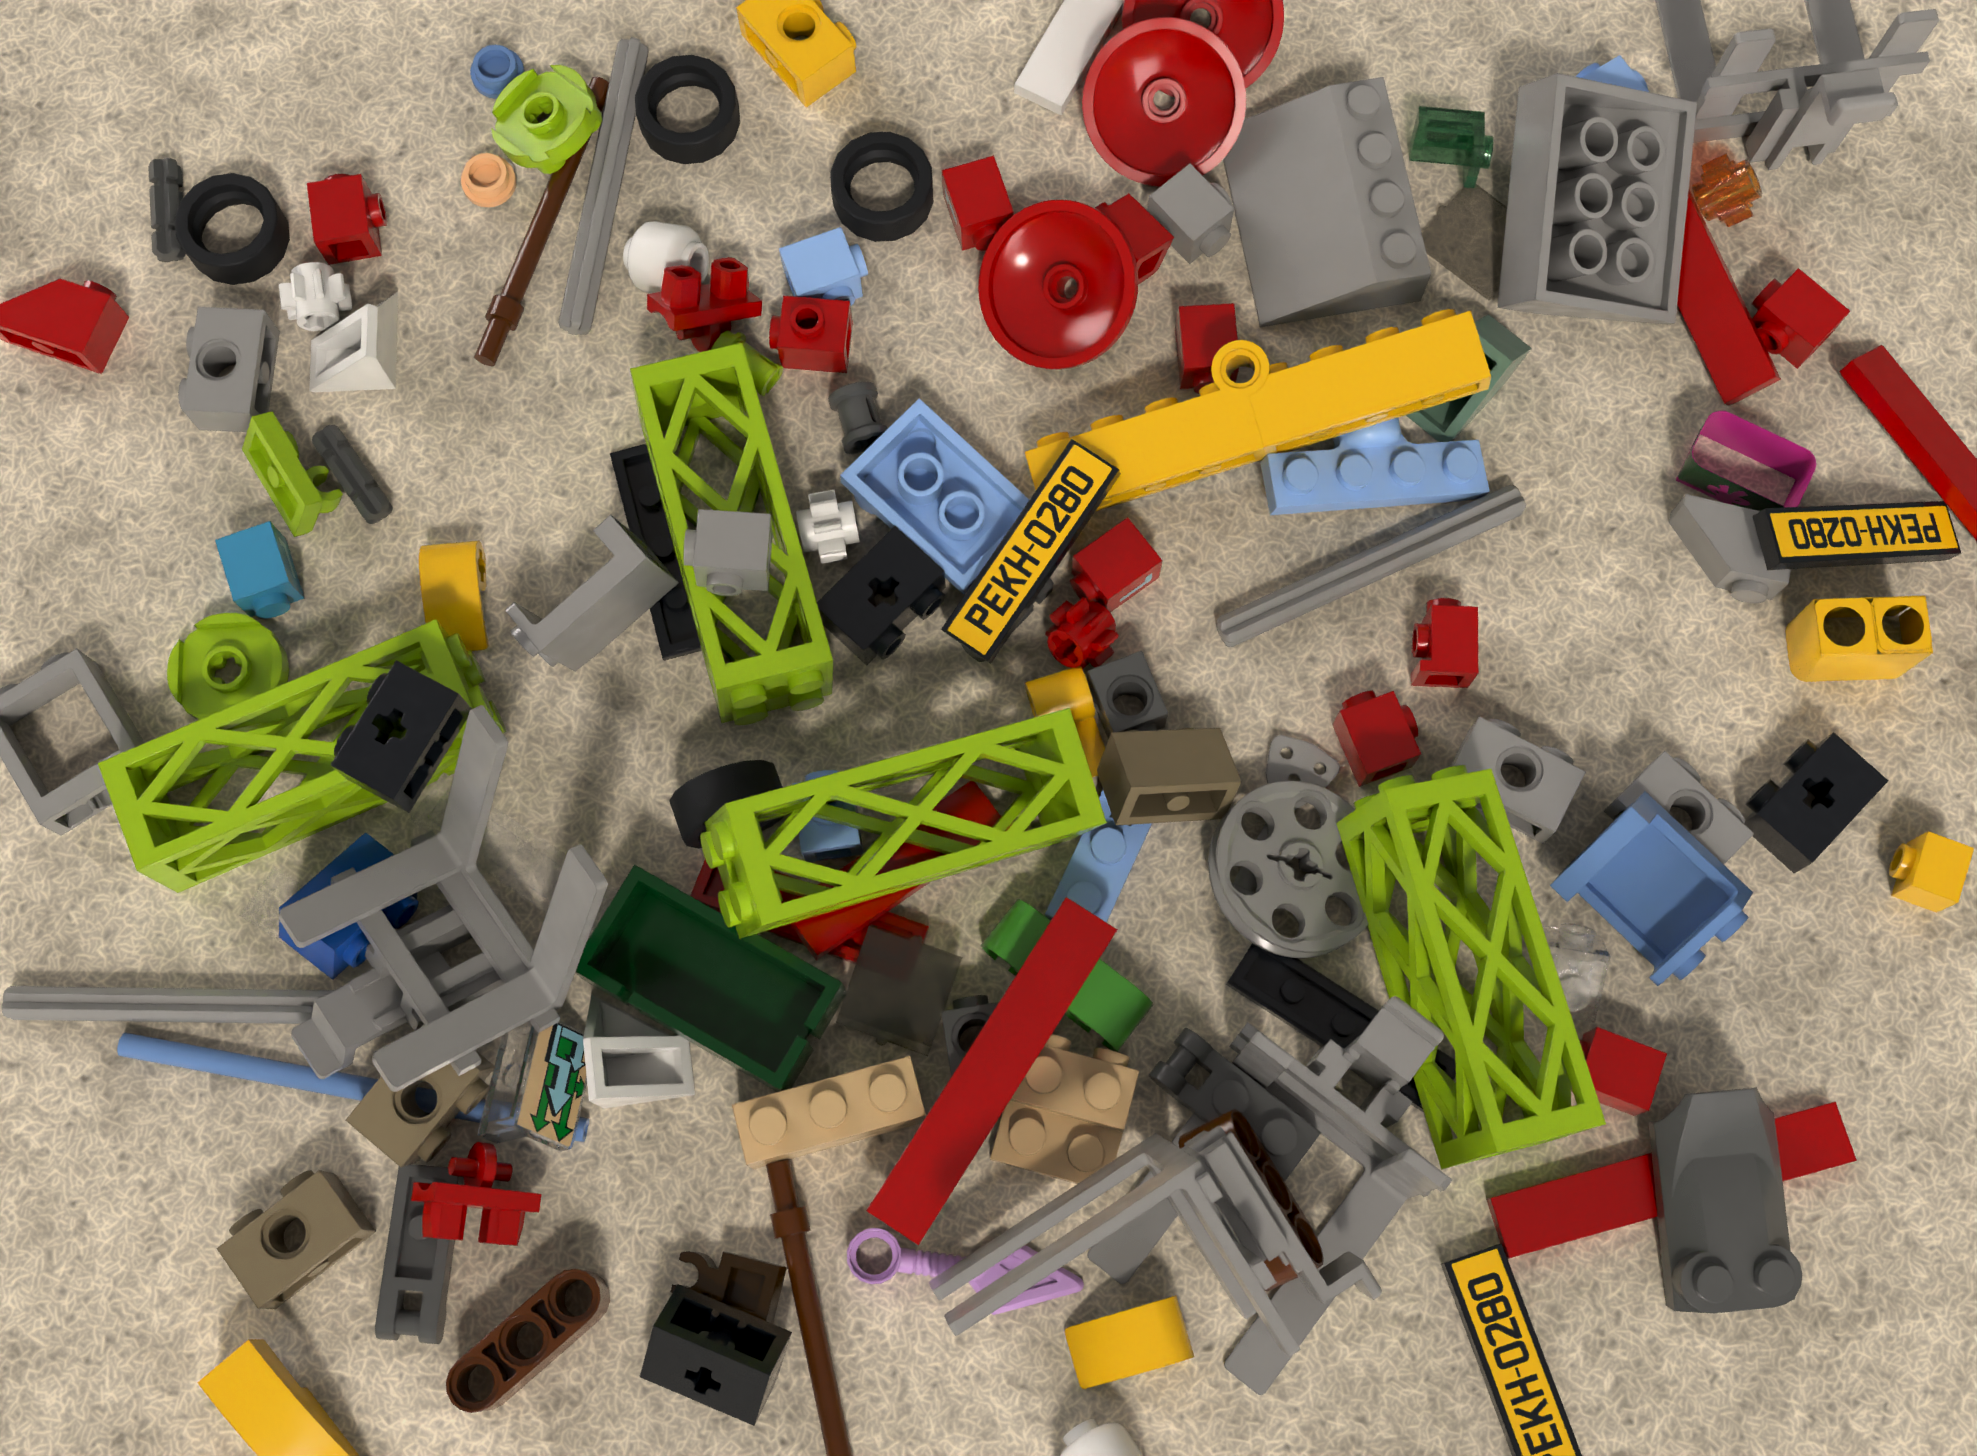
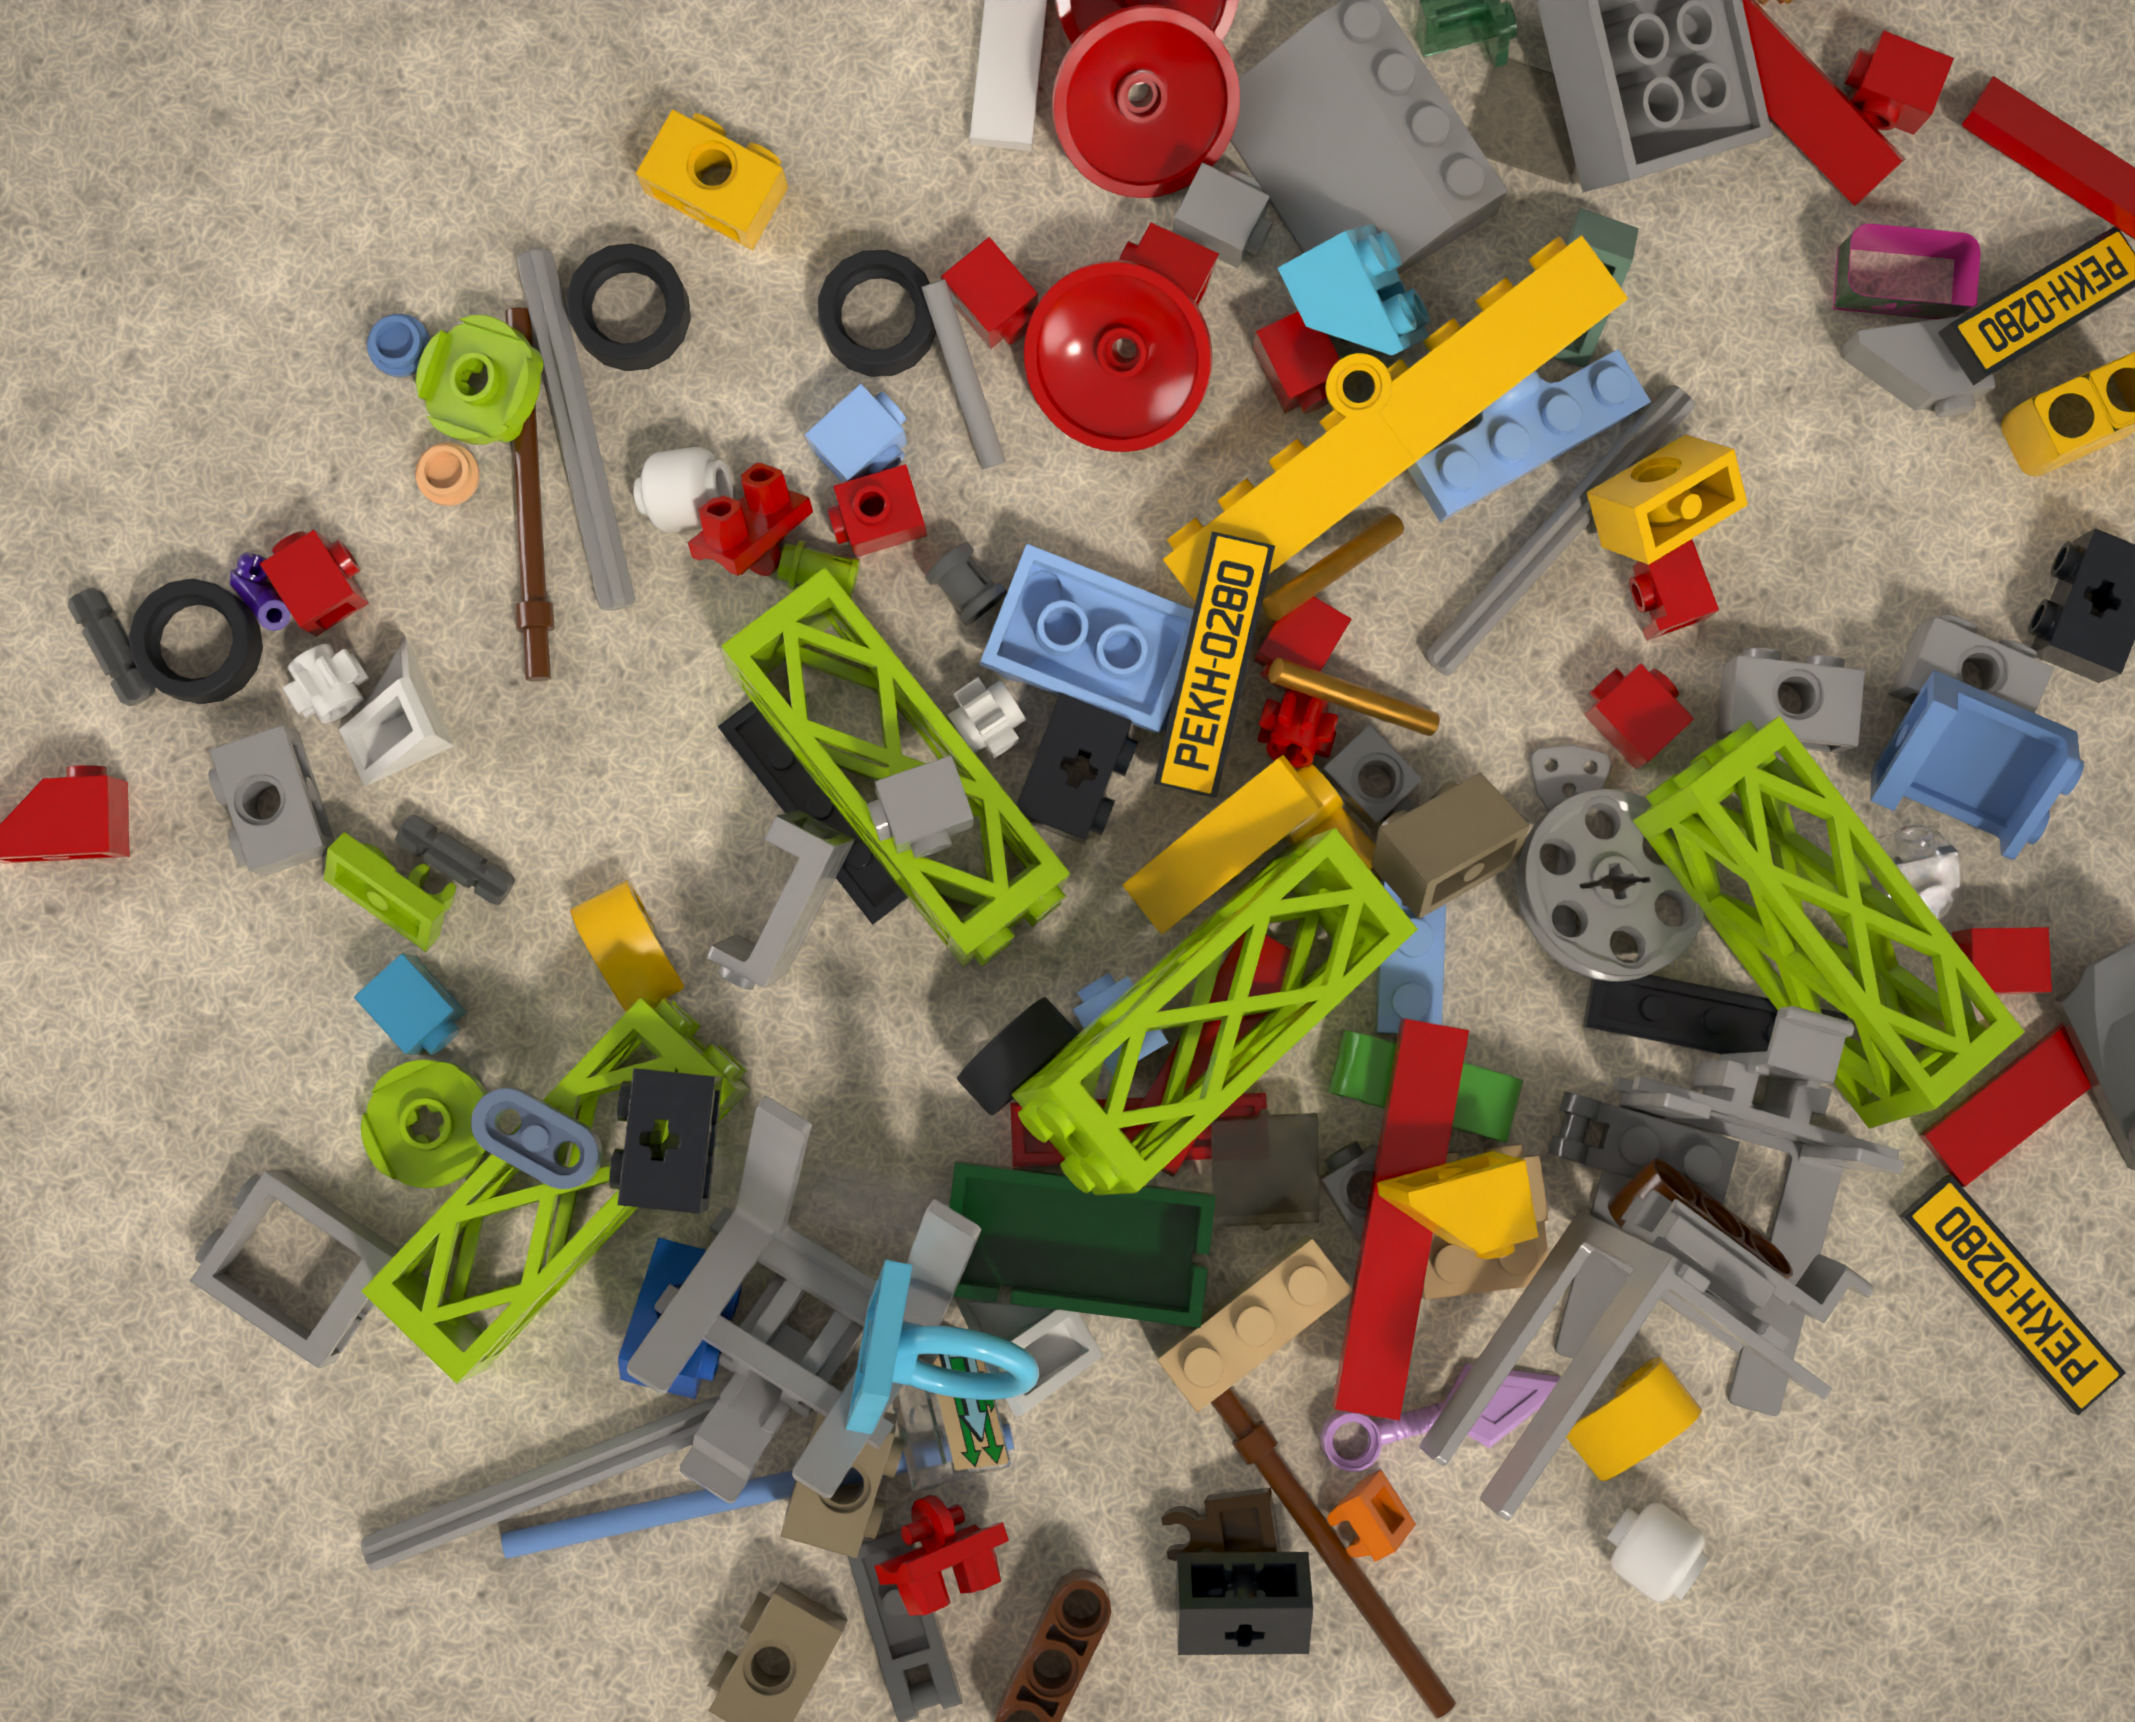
camera: 25 degrees left, 10 degrees up
(297, 210) = (260, 596): none -> dark purple arm
(298, 695) = (538, 1140): none -> sand blue plate
(500, 985) = (892, 1349): none -> medium azure tile
(865, 1329) = (1376, 1517): none -> orange tile
(928, 254) = (963, 374): none -> light grey bar
(977, 698) = (1222, 845): none -> yellow slope
(1054, 1075) = (1470, 1202): none -> yellow slope
(1138, 625) = (1353, 697): none -> pearl gold bar
(1164, 514) = (1332, 567): none -> pearl gold bar
(1271, 295) = (1356, 293): none -> medium azure slope
(1469, 567) = (1667, 498): none -> yellow brick

